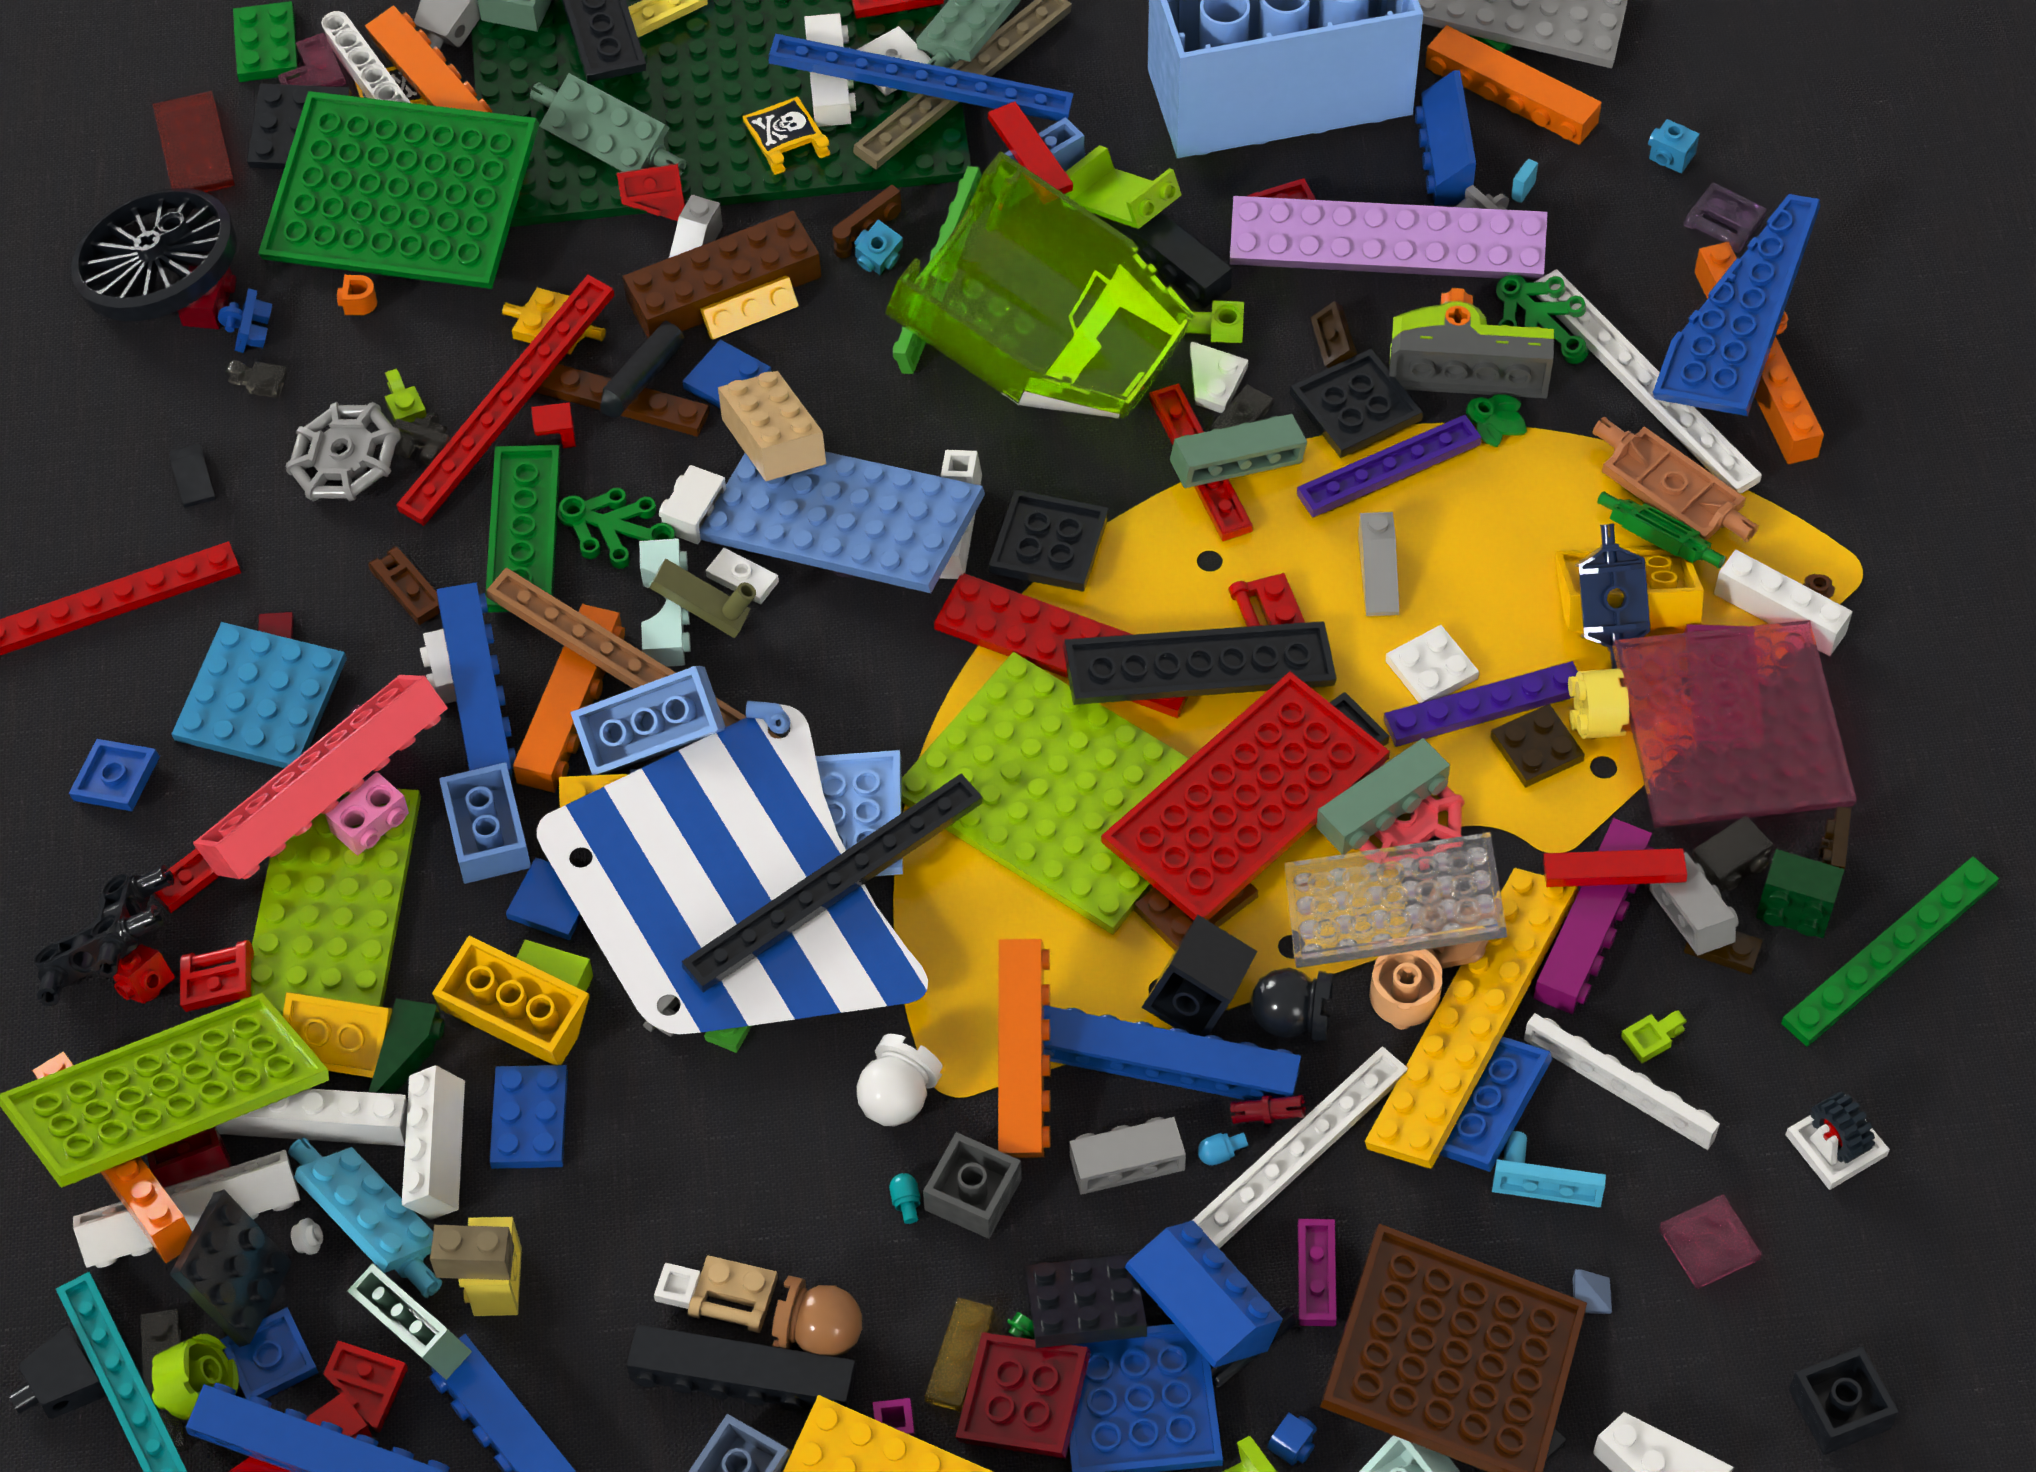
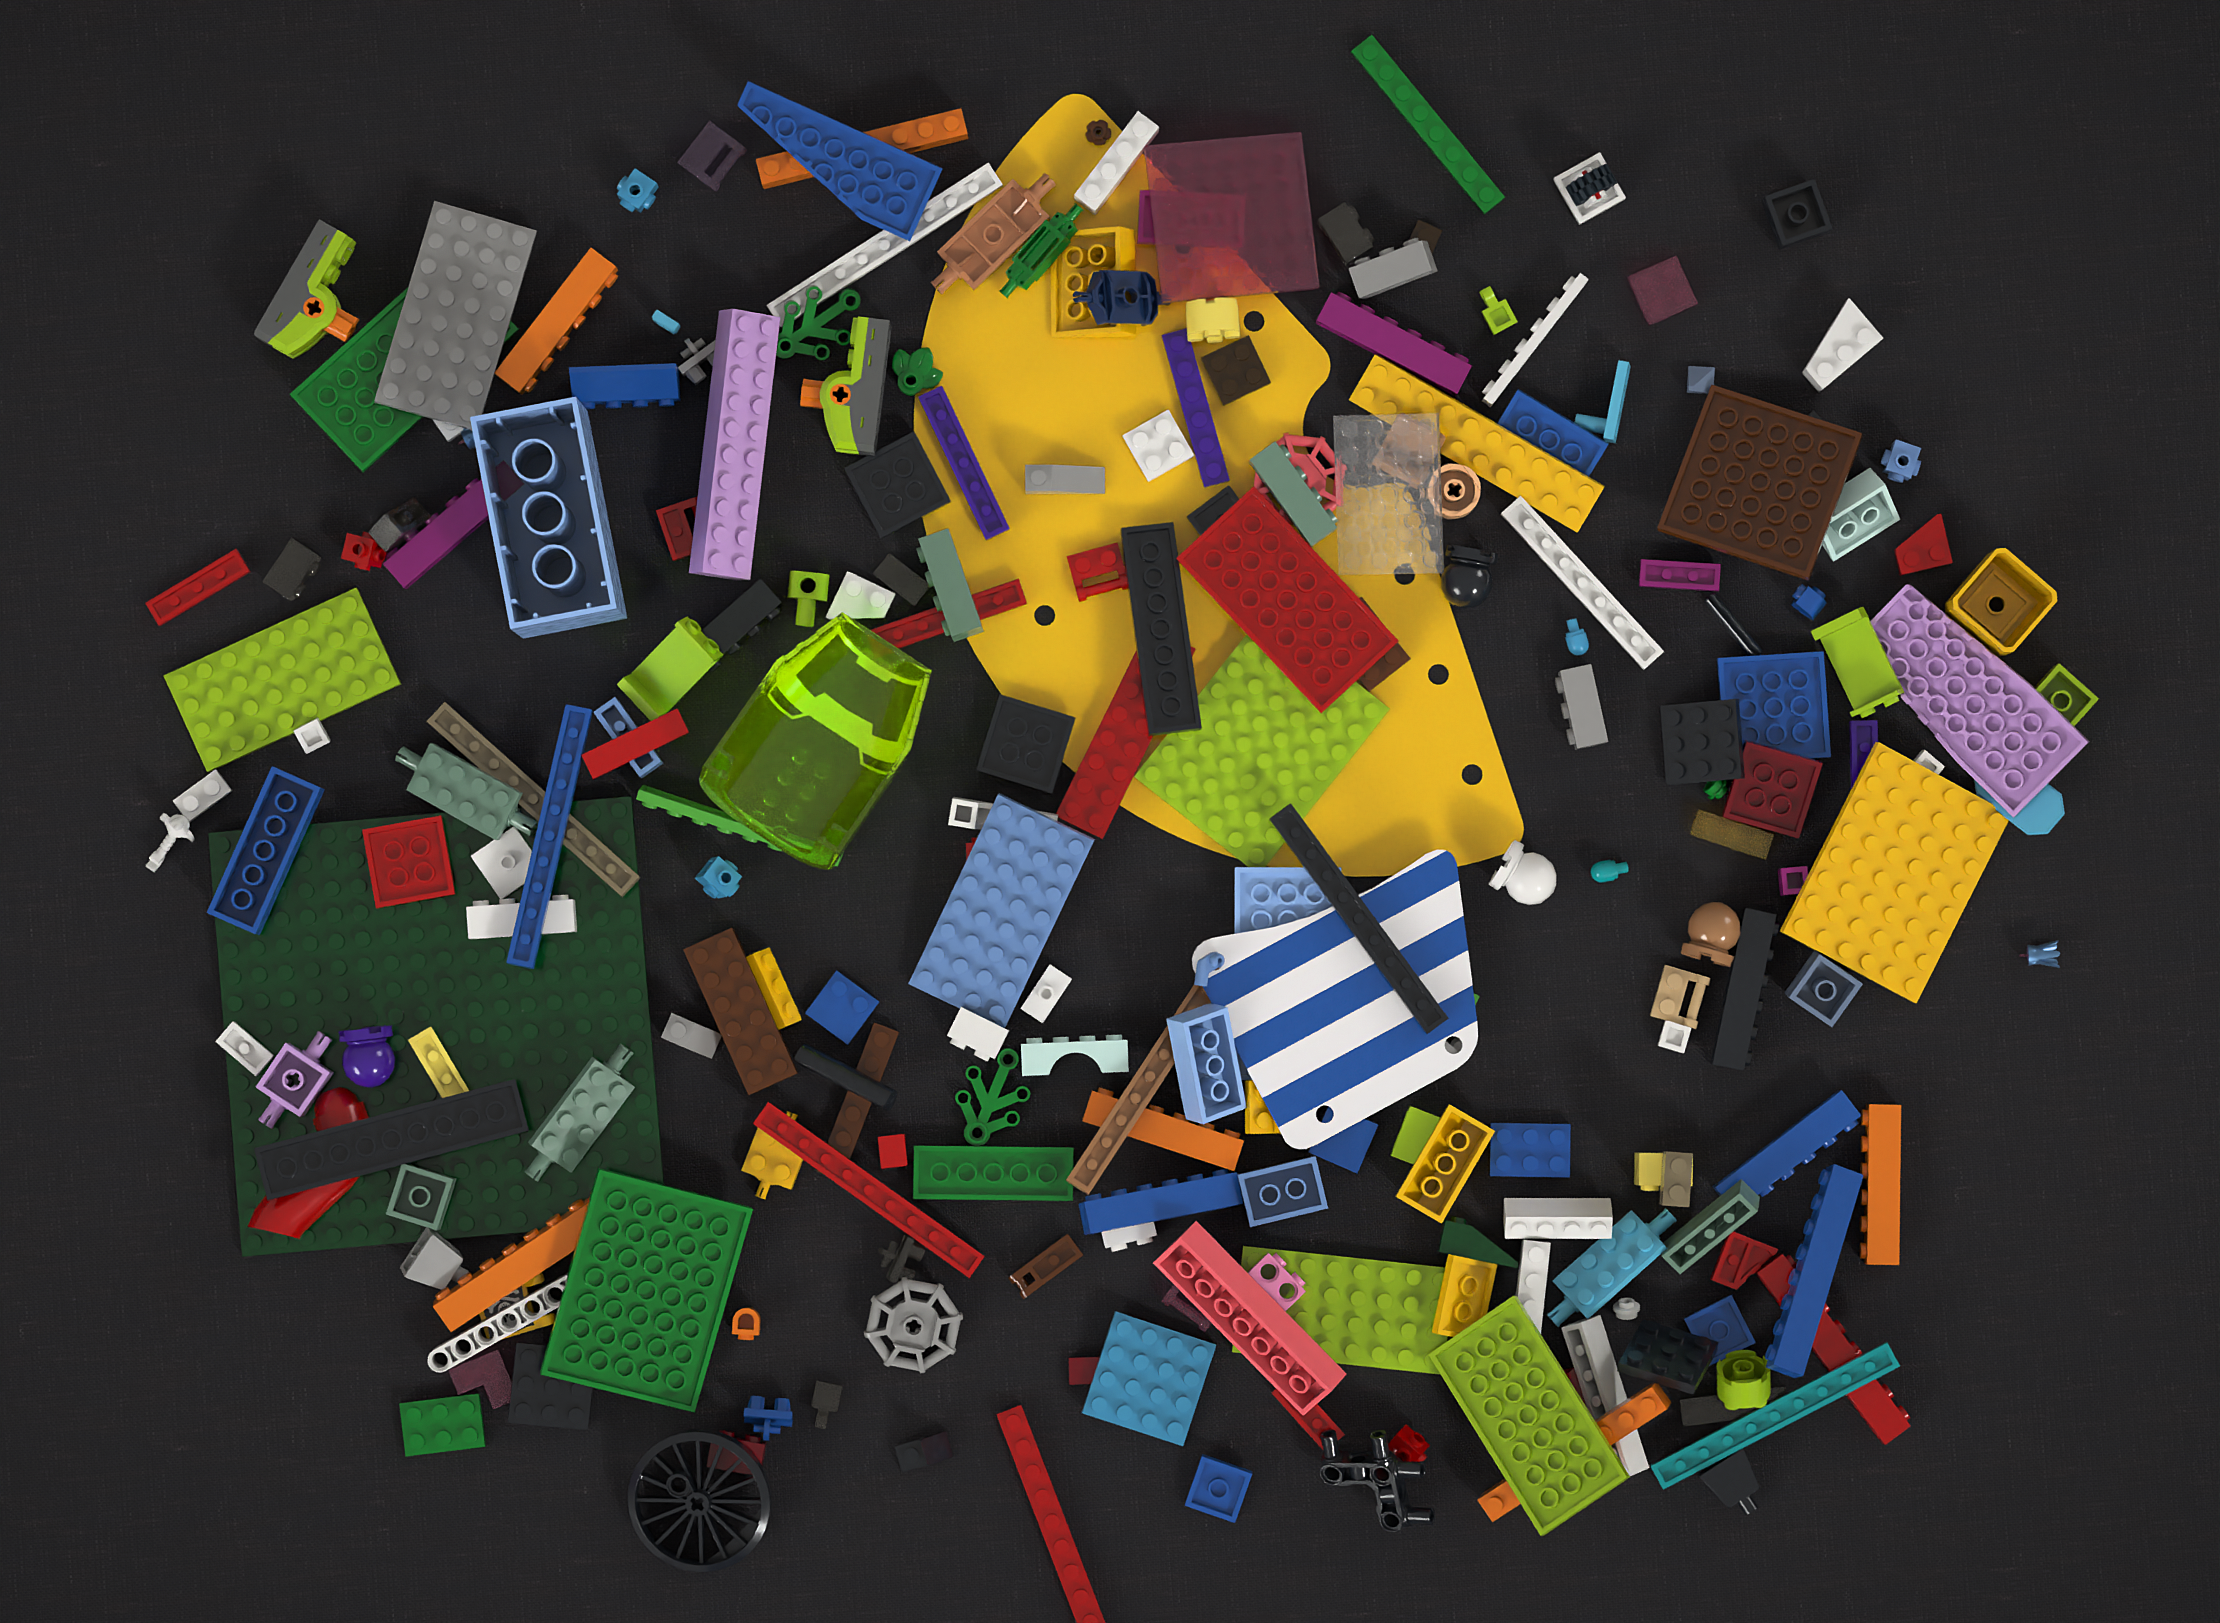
camera: 90 degrees left, 30 degrees up
(193, 143) = (561, 1480): clear red tile -> none
(218, 983) = (1415, 1392): red plate -> none
(403, 402) = (857, 1277): lime plate -> none
(653, 190) = (649, 1071): red wing -> none
(702, 599) = (1079, 1023): olive piece -> none
(772, 425) = (915, 967): tan brick -> none
(783, 129) = (582, 958): flag -> none
(883, 207) = (685, 888): reddish brown plate -> none
(972, 1185) = (1607, 820): dark grey brick -> none
(1022, 1048) = (1506, 780): orange brick -> none
(1169, 1056) = (1501, 681): blue brick -> none
(1200, 978) = (1443, 643): black slope -> none
(1205, 1295) = (1706, 657): blue slope -> none
(1268, 1109) = (1550, 601): dark red pin -> none
(1333, 335) = (827, 498): dark brown plate -> none
(1614, 867) = (1366, 324): red tile -> none
(1799, 894) = (1389, 188): dark green brick -> none
(1835, 840) = (1345, 154): dark brown plate -> none

